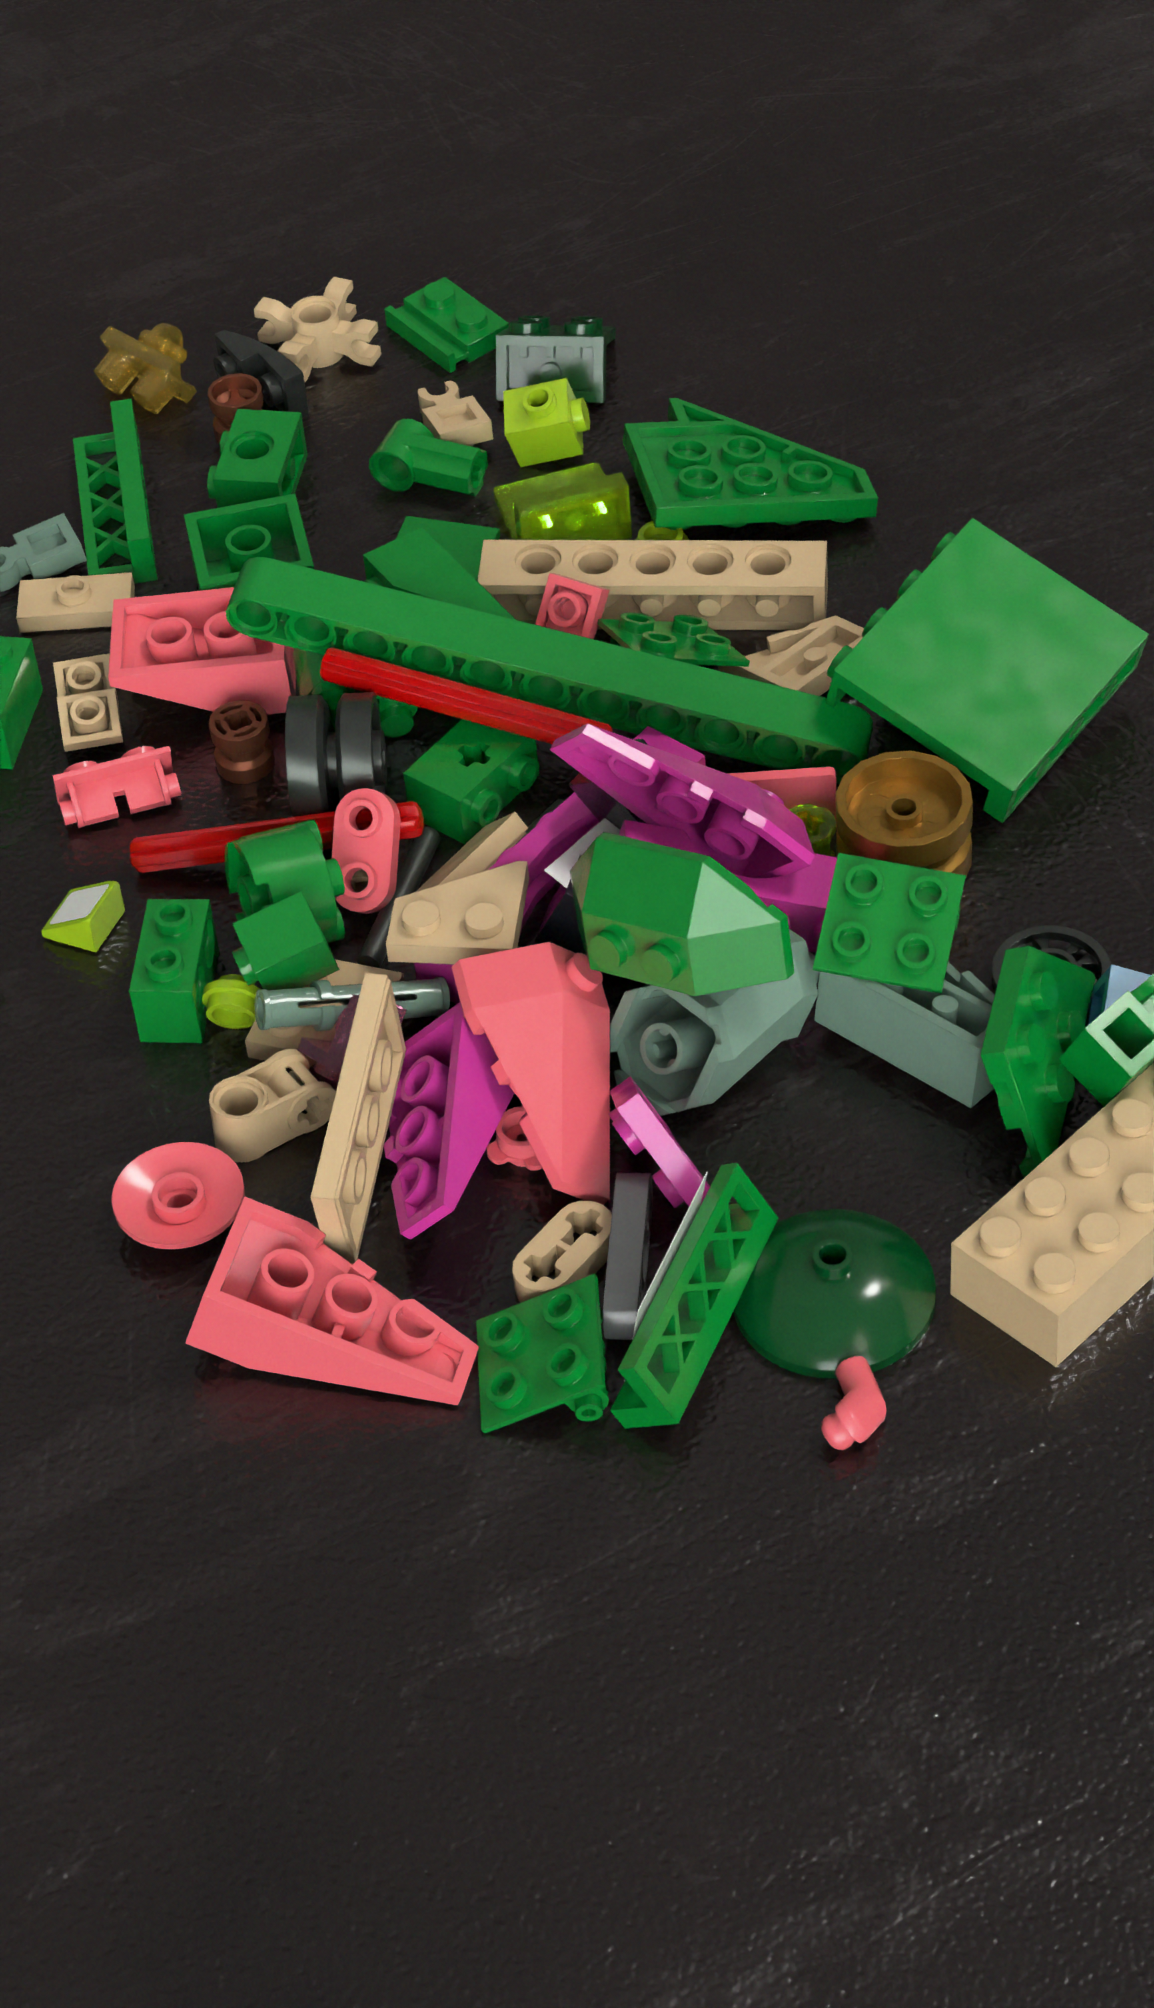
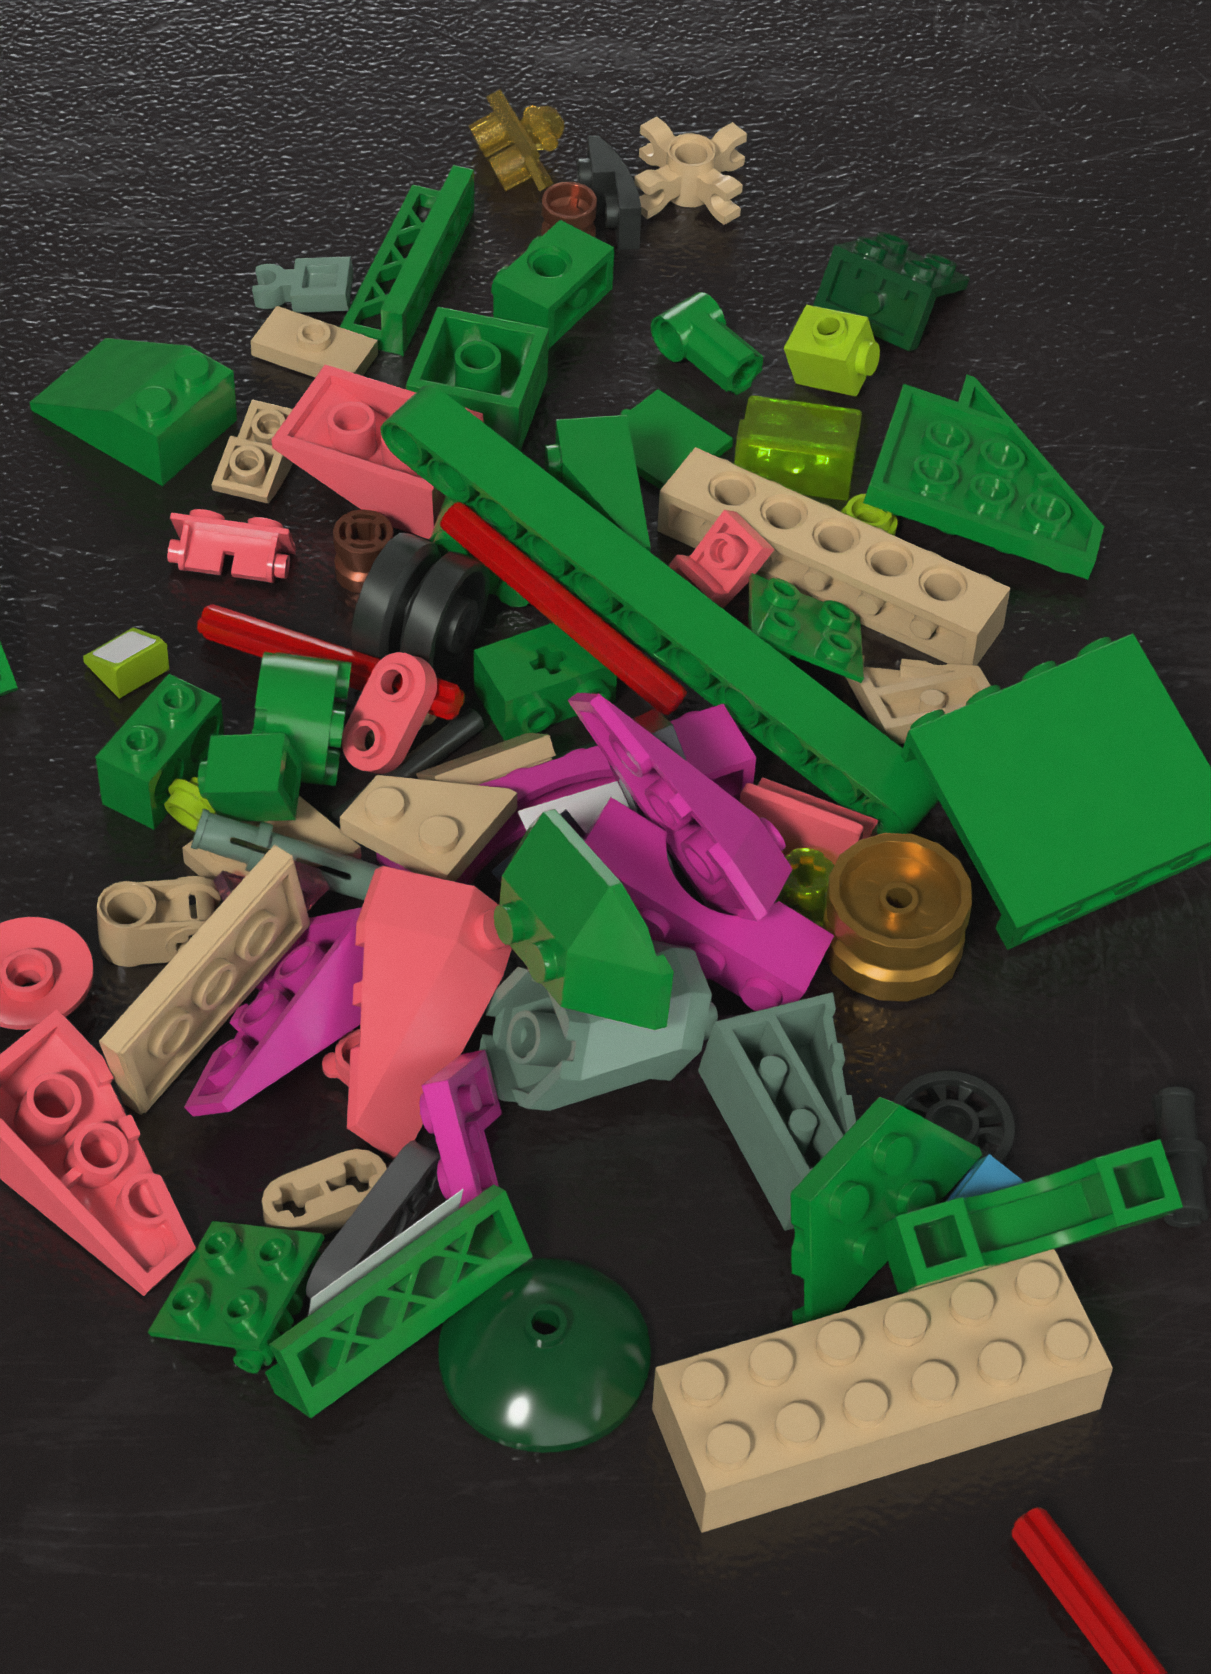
camera: 20 degrees right, 5 degrees up
(446, 324) = (815, 209): green plate -> none
(454, 418) = (759, 309): tan plate -> none
(859, 1410) = (487, 1486): coral arm -> none
(889, 923) = (796, 1015): green hinge -> none

